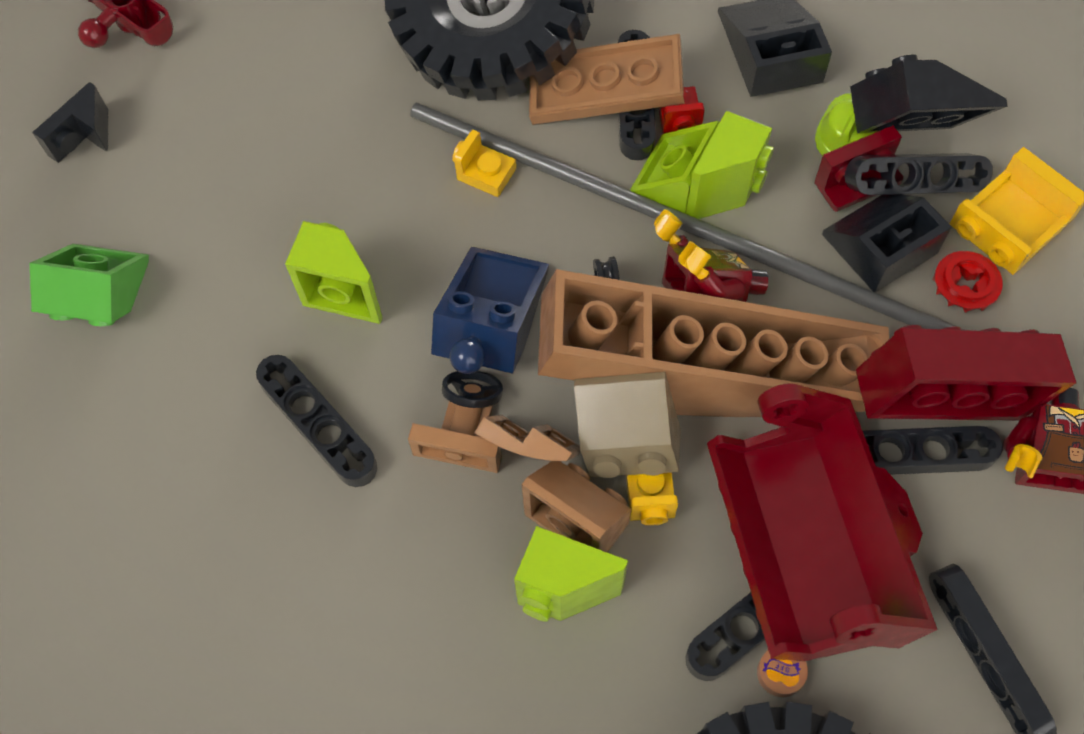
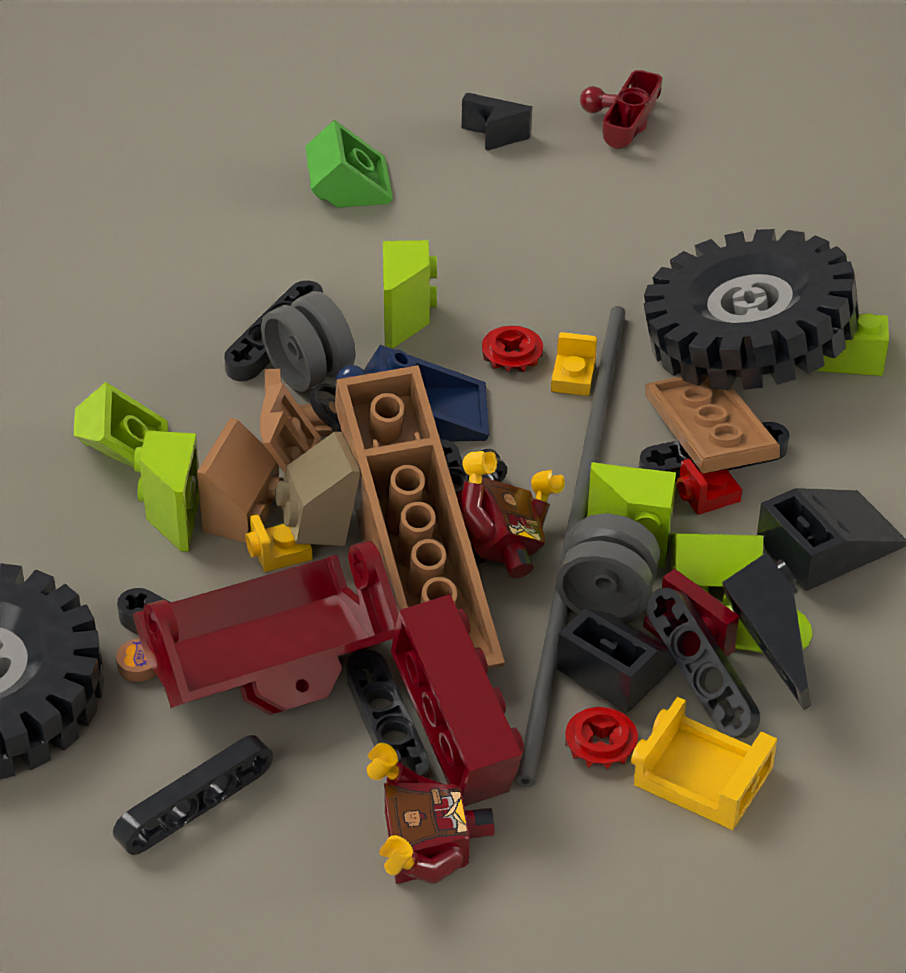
camera: 70 degrees right, 20 degrees down
(382, 383) = (308, 340): none -> dark grey wheel
(440, 195) = (511, 338): none -> red gear
(440, 617) = (115, 423): none -> lime slope
(795, 208) = (608, 566): none -> dark grey wheel
(797, 122) = (713, 557): none -> lime slope

